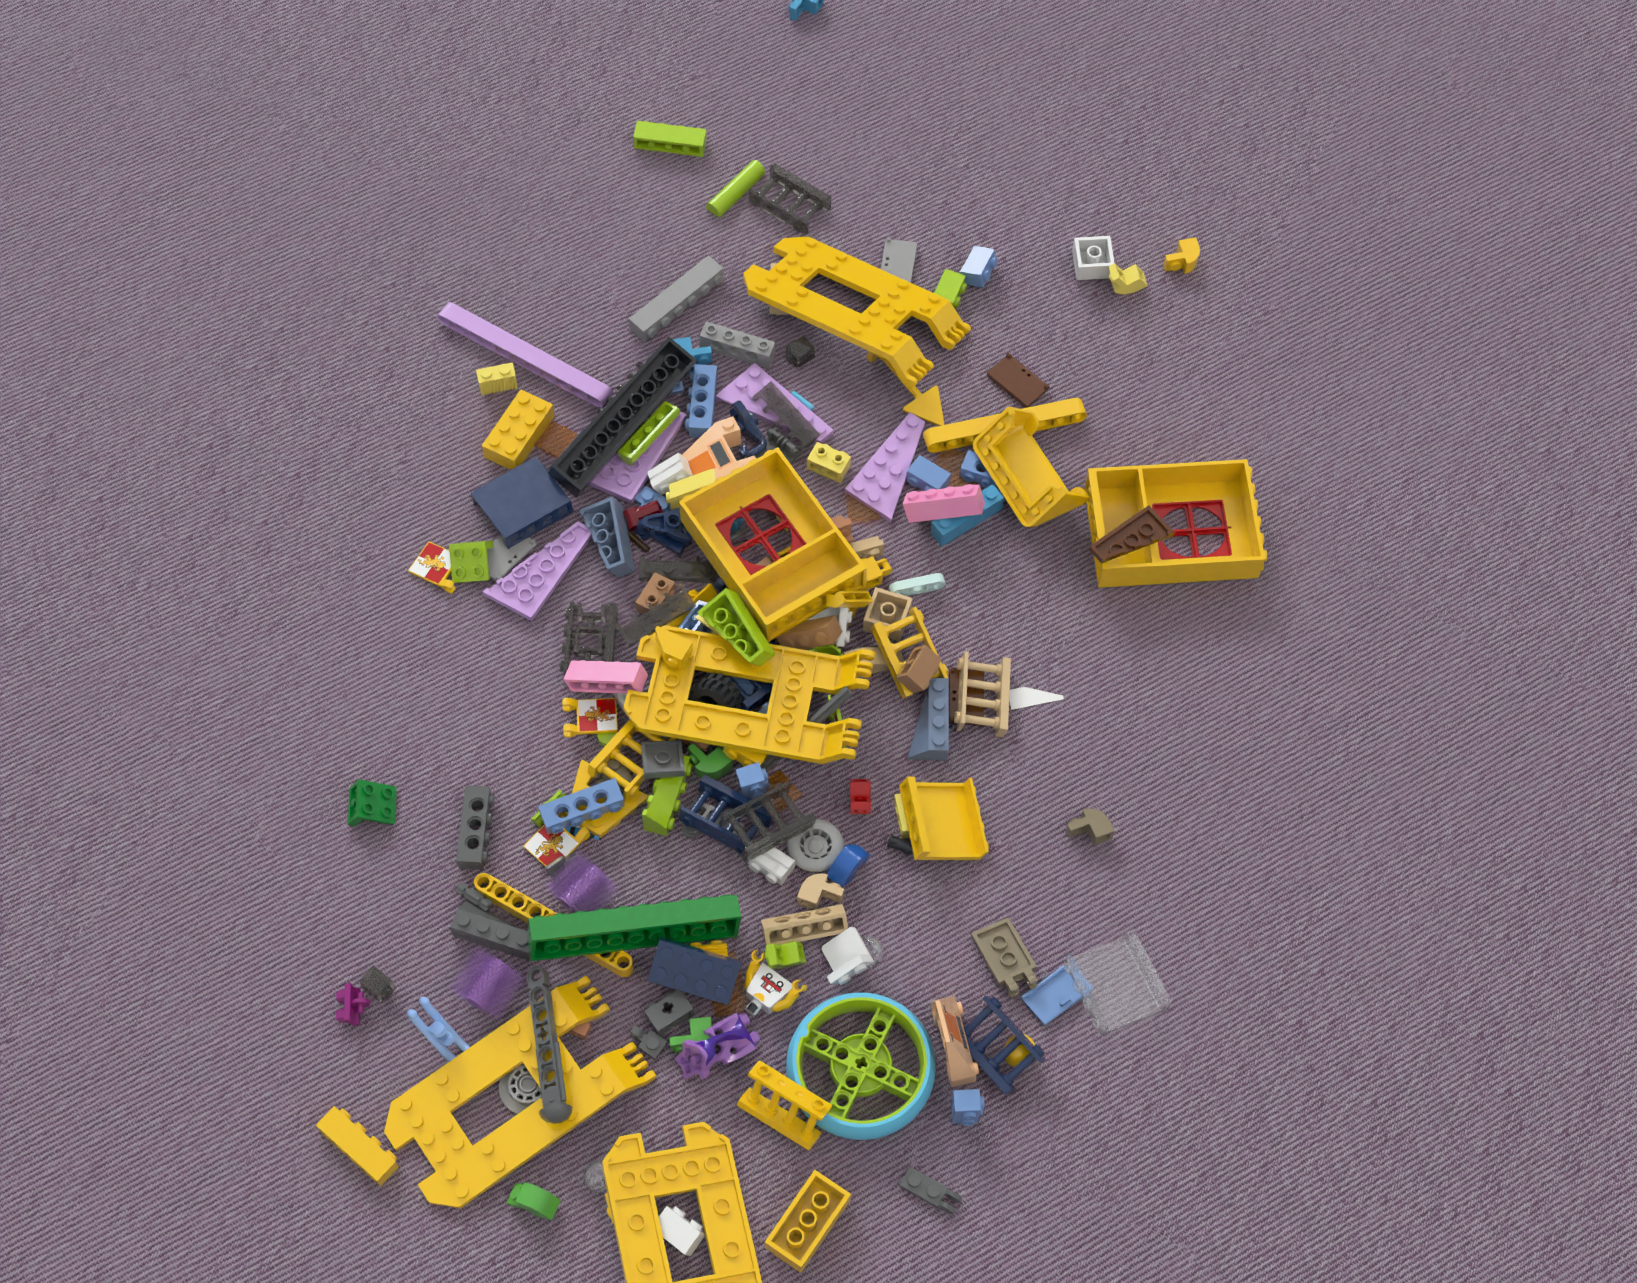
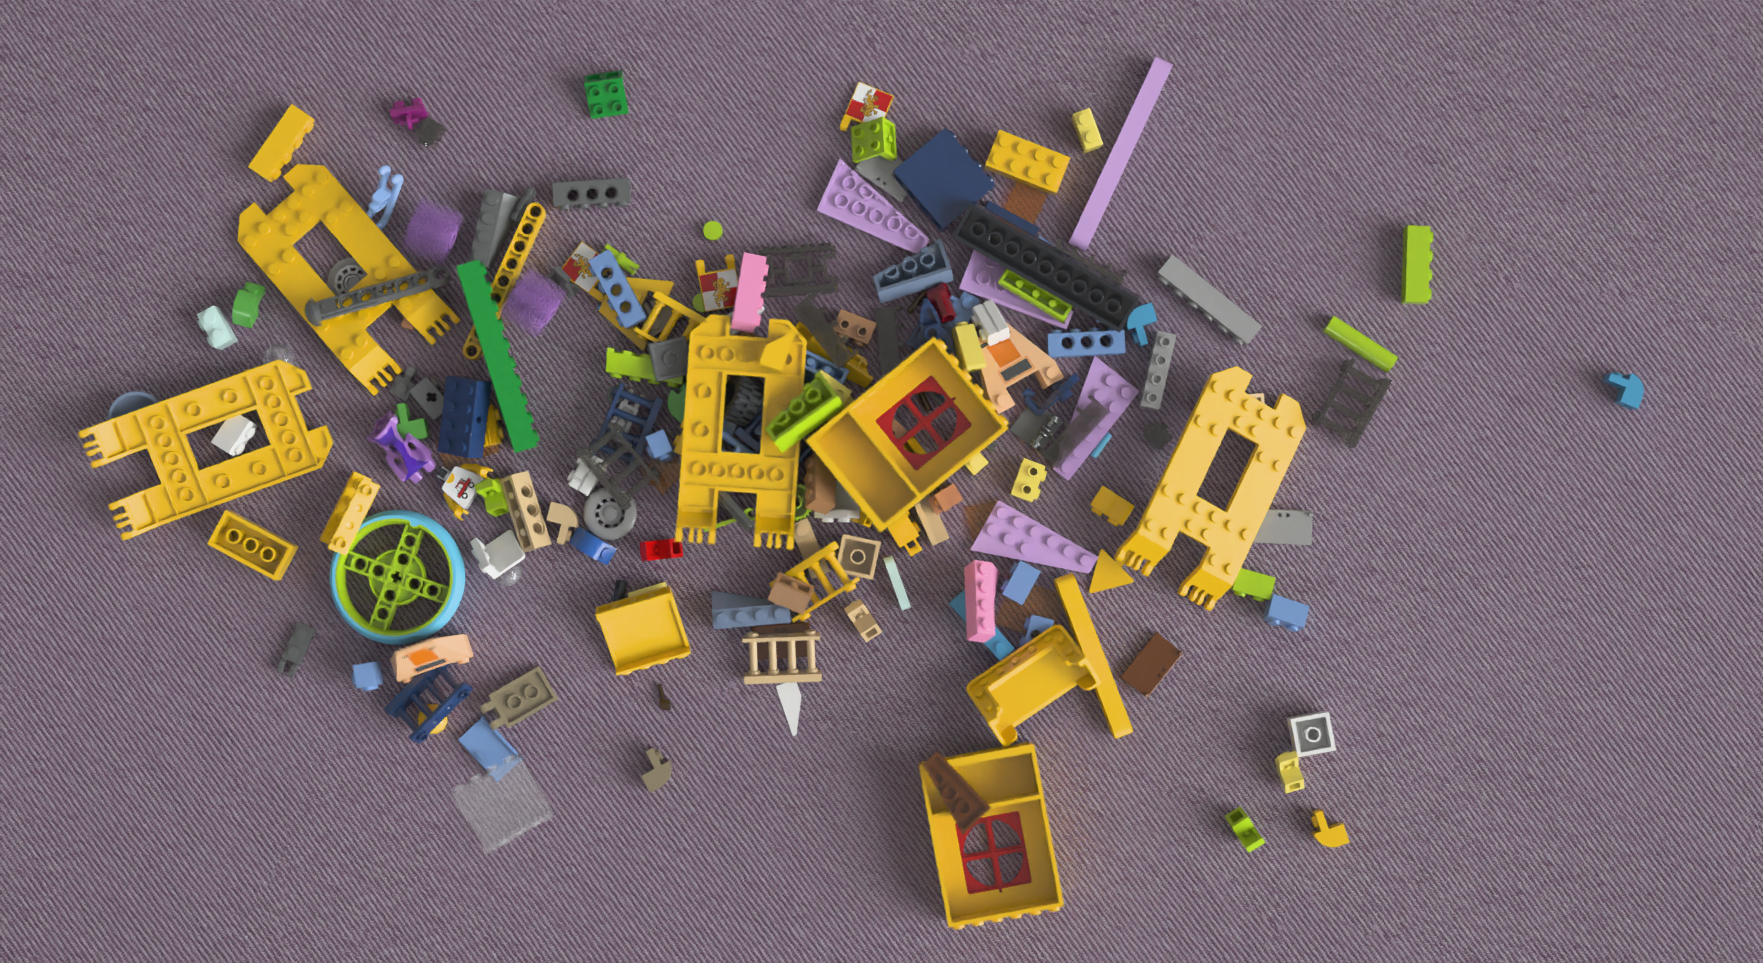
camera: 80 degrees right, 25 degrees up
(534, 718) = (712, 230): none -> lime tile
(554, 1239) = (217, 328): none -> light aqua brick
(849, 599) = (855, 517): yellow piece -> none
(862, 395) = (1112, 506): none -> yellow brick
(952, 618) = (863, 620): none -> tan brick
(1022, 814) = (664, 704): none -> dark brown hand
(1181, 320) = (1244, 829): none -> lime brick

